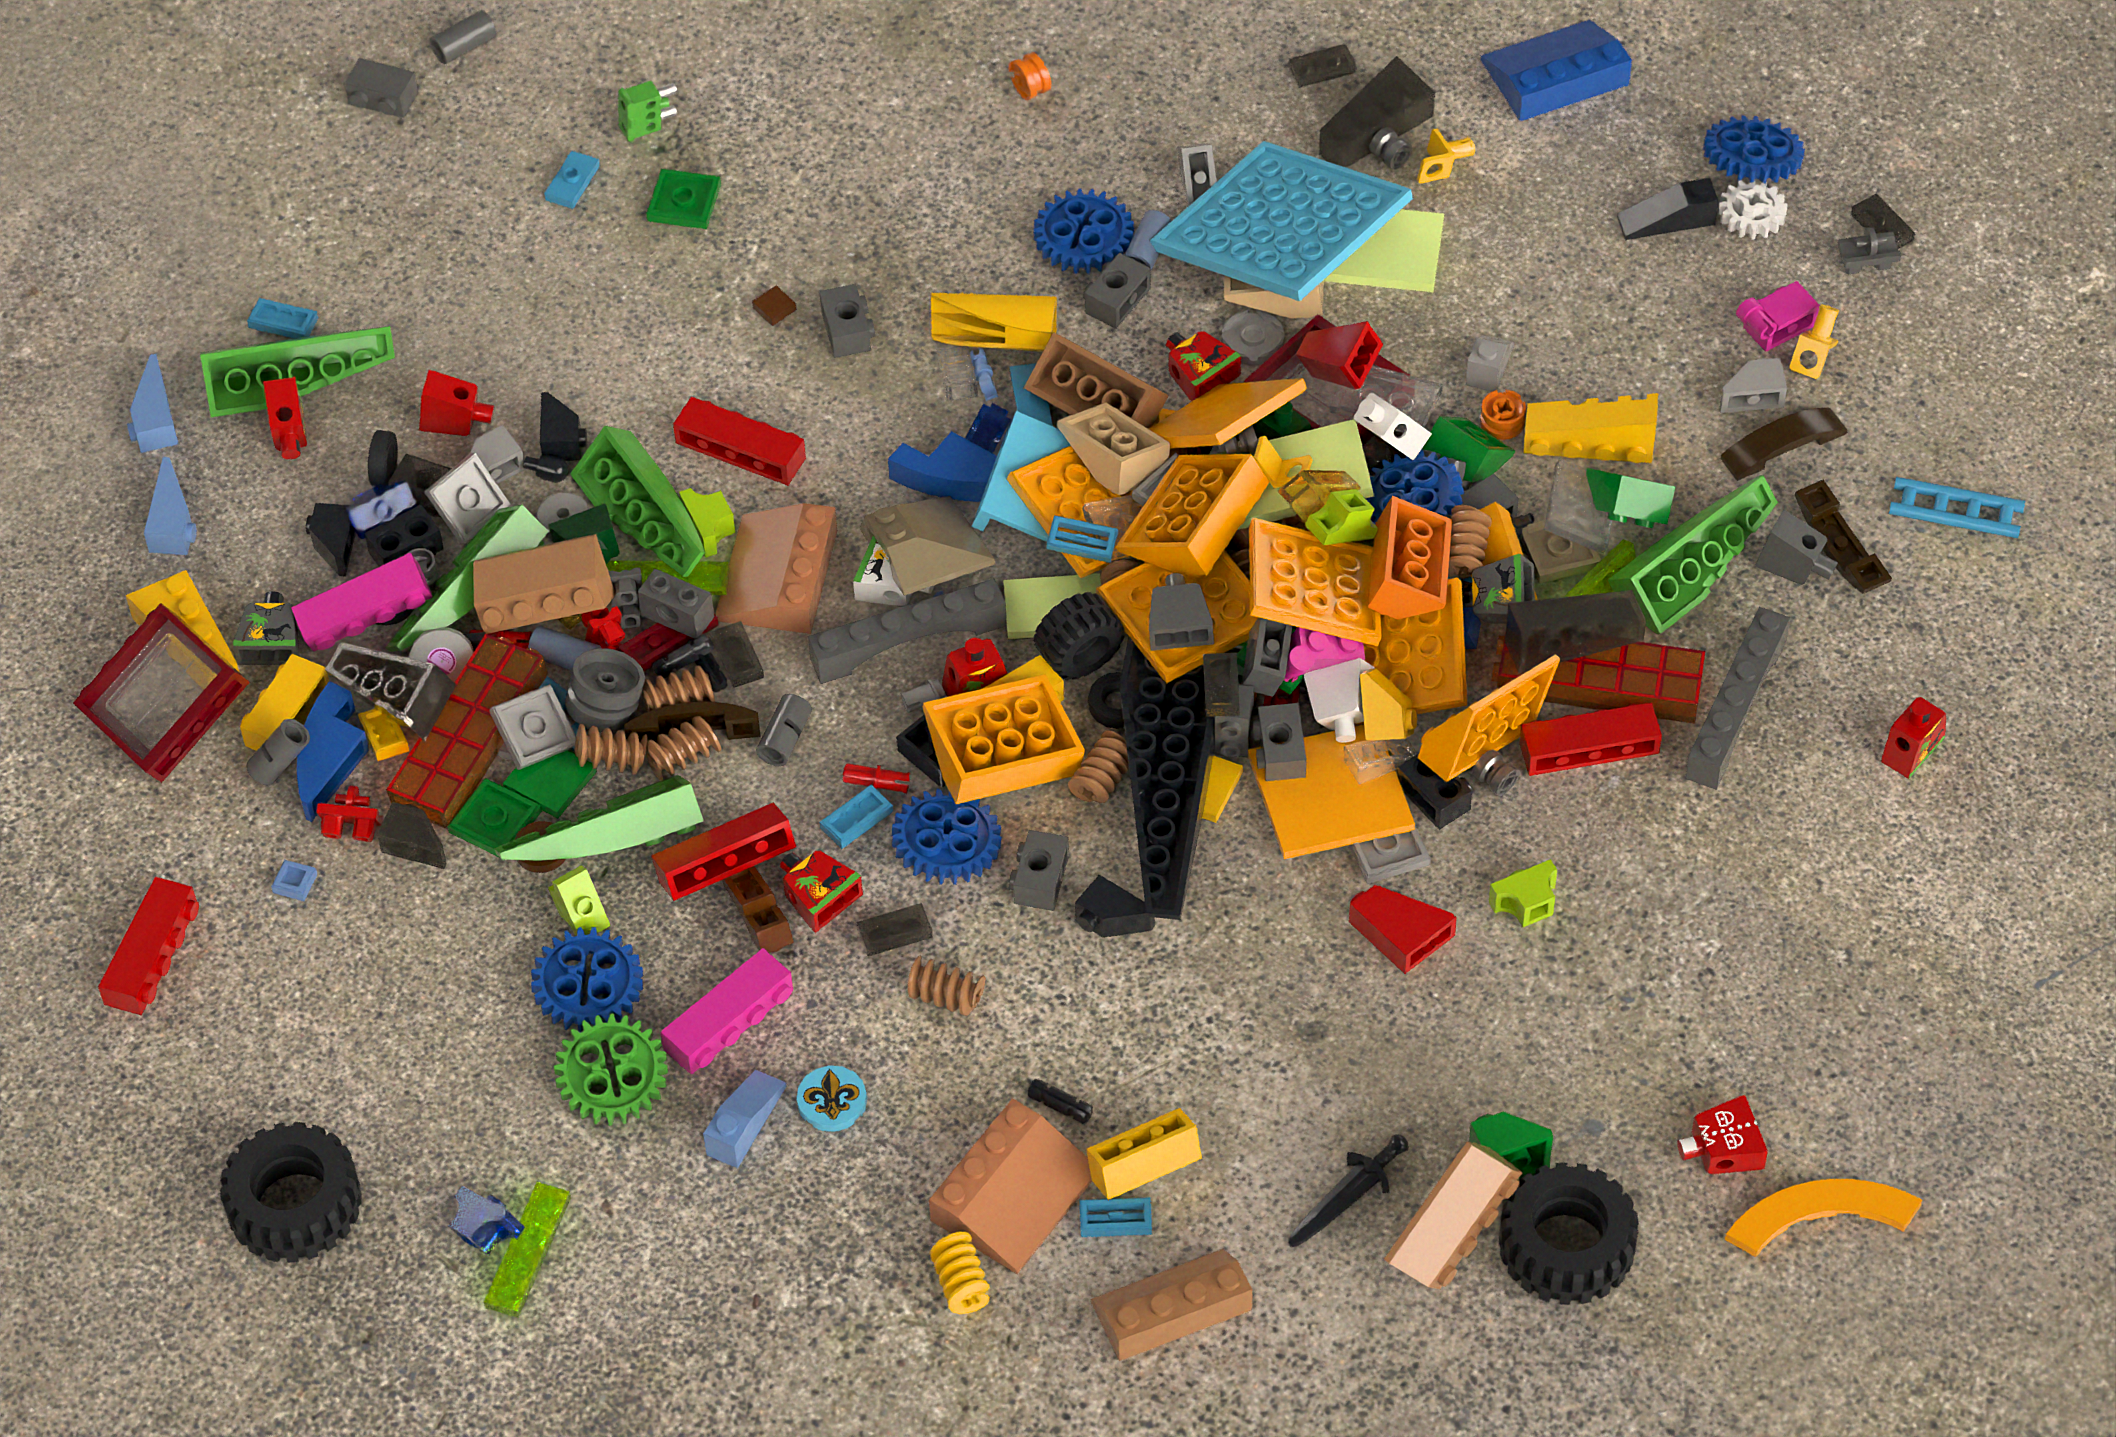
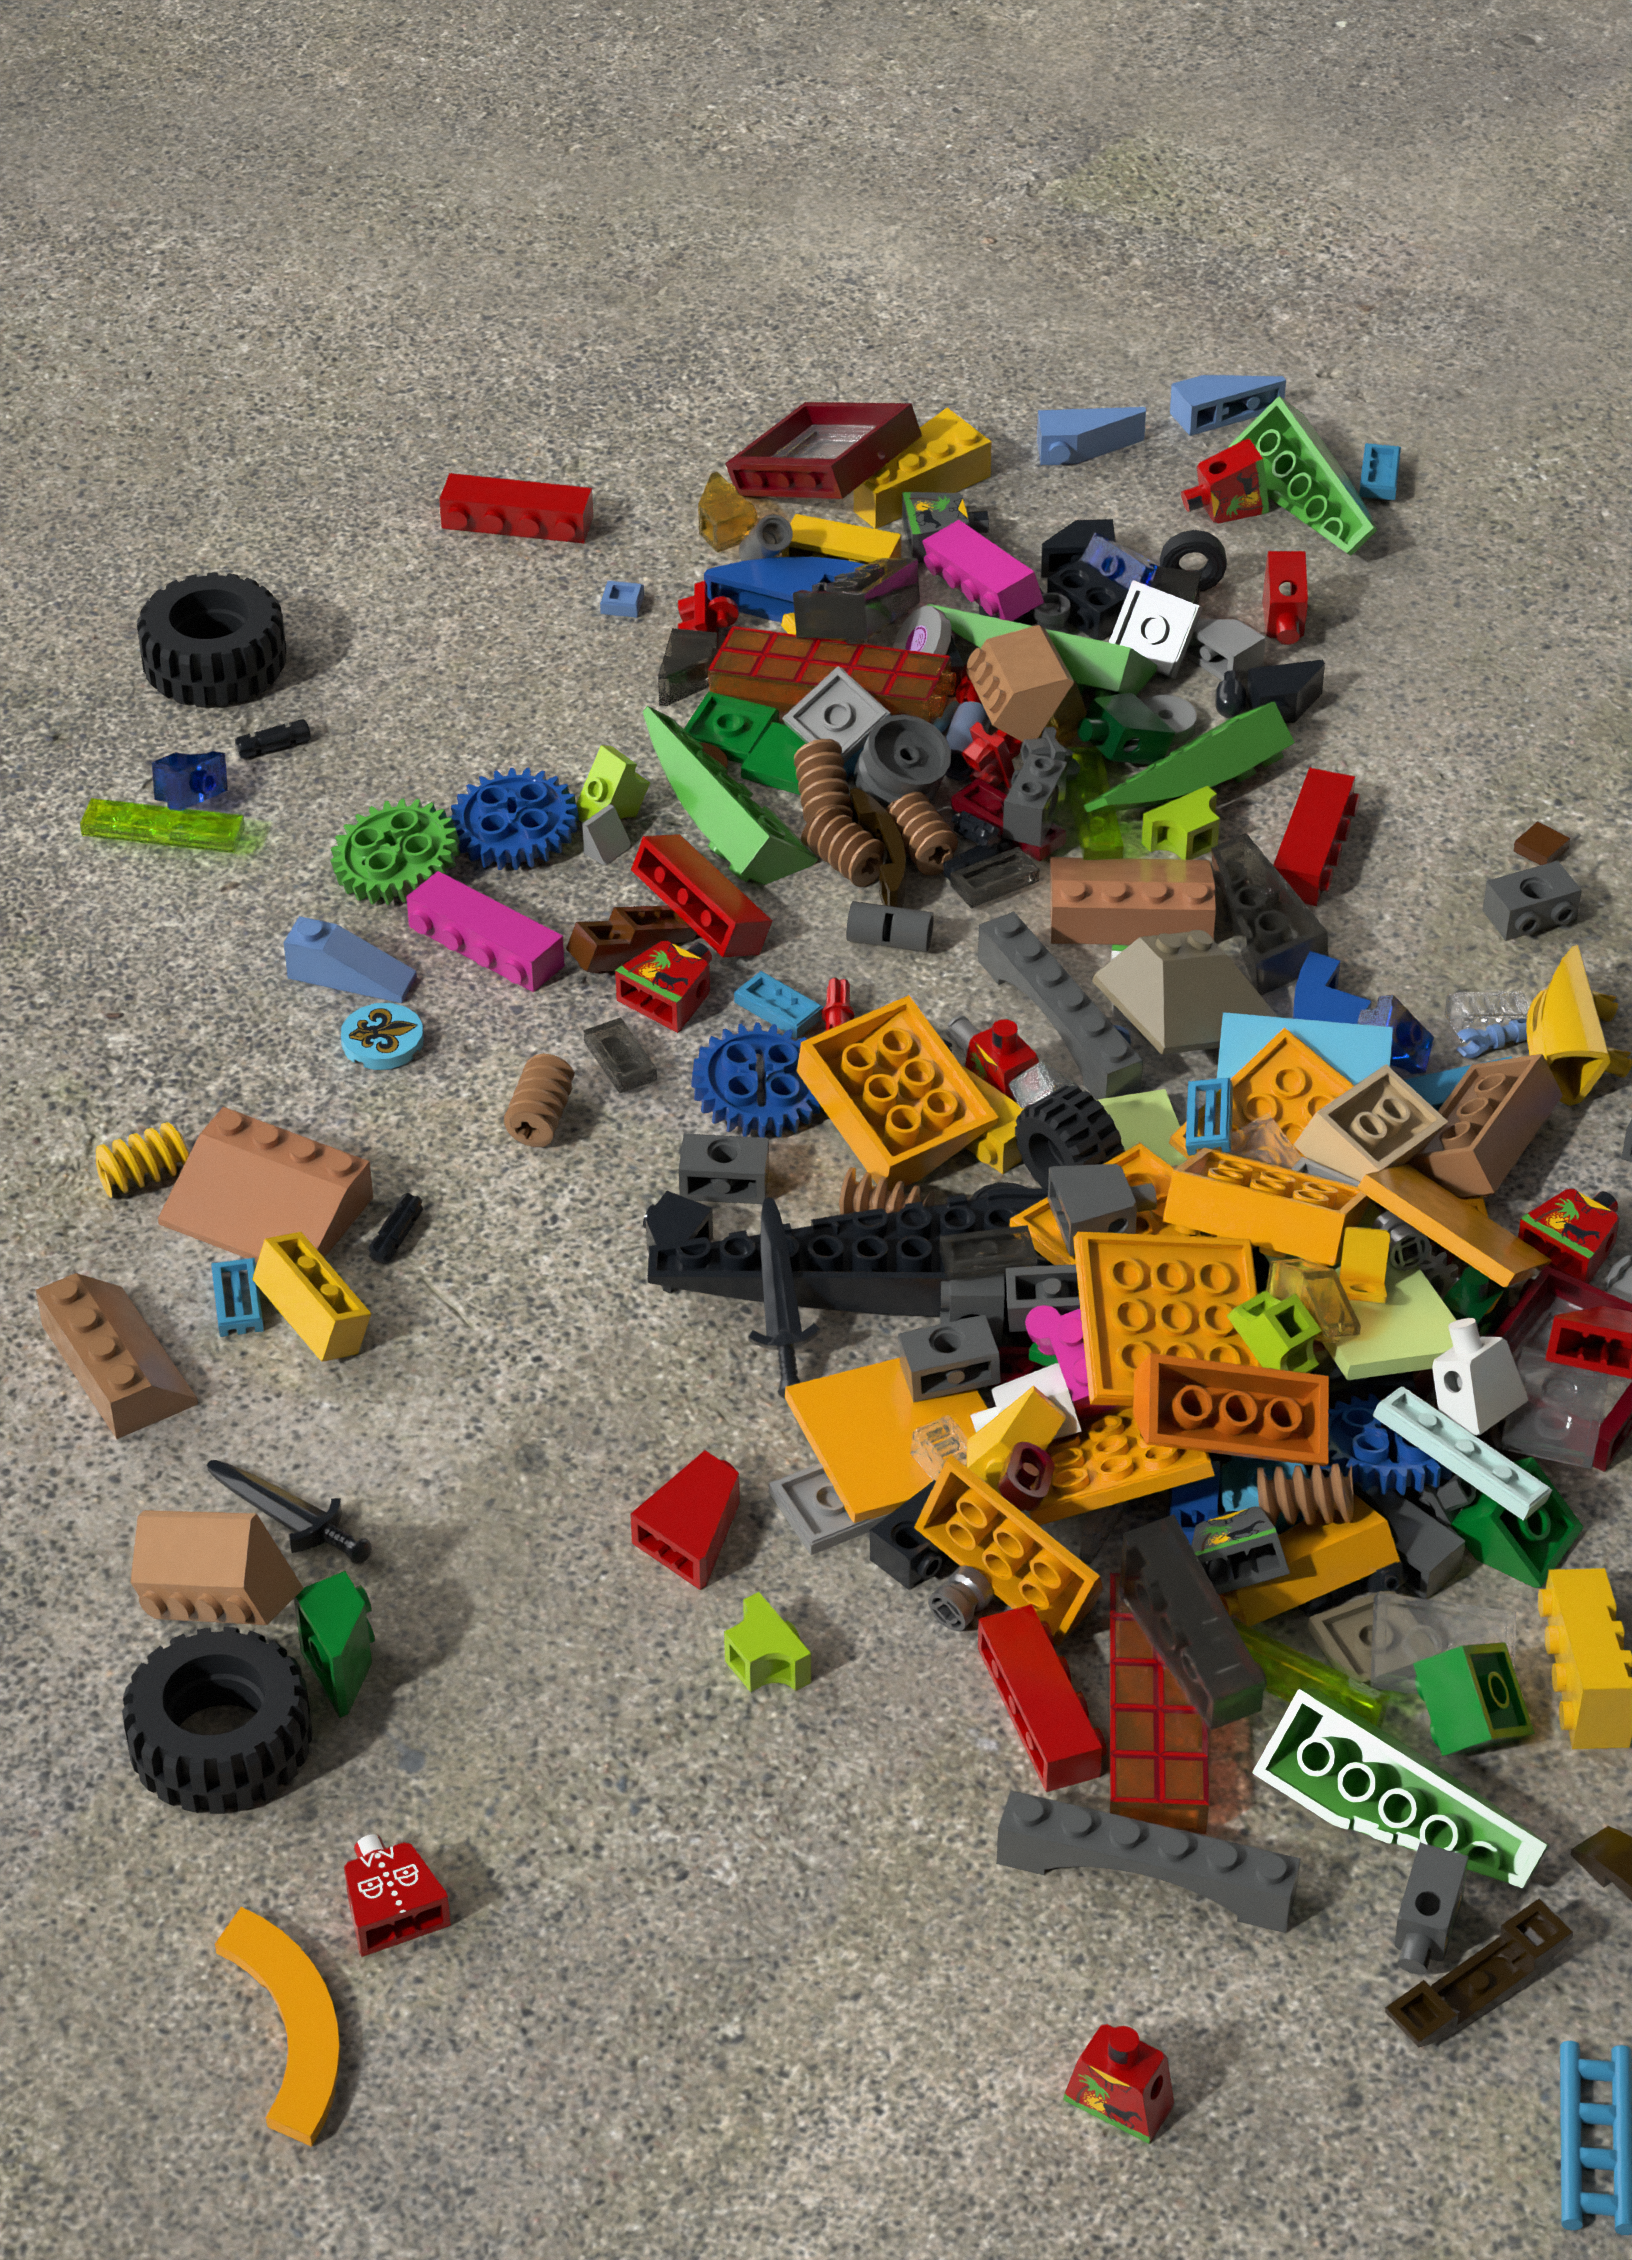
camera: 80 degrees right, 10 degrees down
(203, 788) = (724, 514): none -> clear yellow slope
(423, 1161) = (272, 739): none -> black axle
(622, 918) = (605, 836): none -> light grey slope
(849, 479) = (1265, 915): none -> clear smoke wedge
(1019, 643) = (1037, 1084): none -> clear slope
(1222, 781) = (882, 1326): yellow tile -> none
(1230, 841) = (780, 1299): none -> black sword
(1437, 694) = (1026, 1476): none -> dark red plate
(1442, 448) = (1462, 1453): none -> light aqua tile
(1503, 414) = (1597, 1547): orange wheel -> none

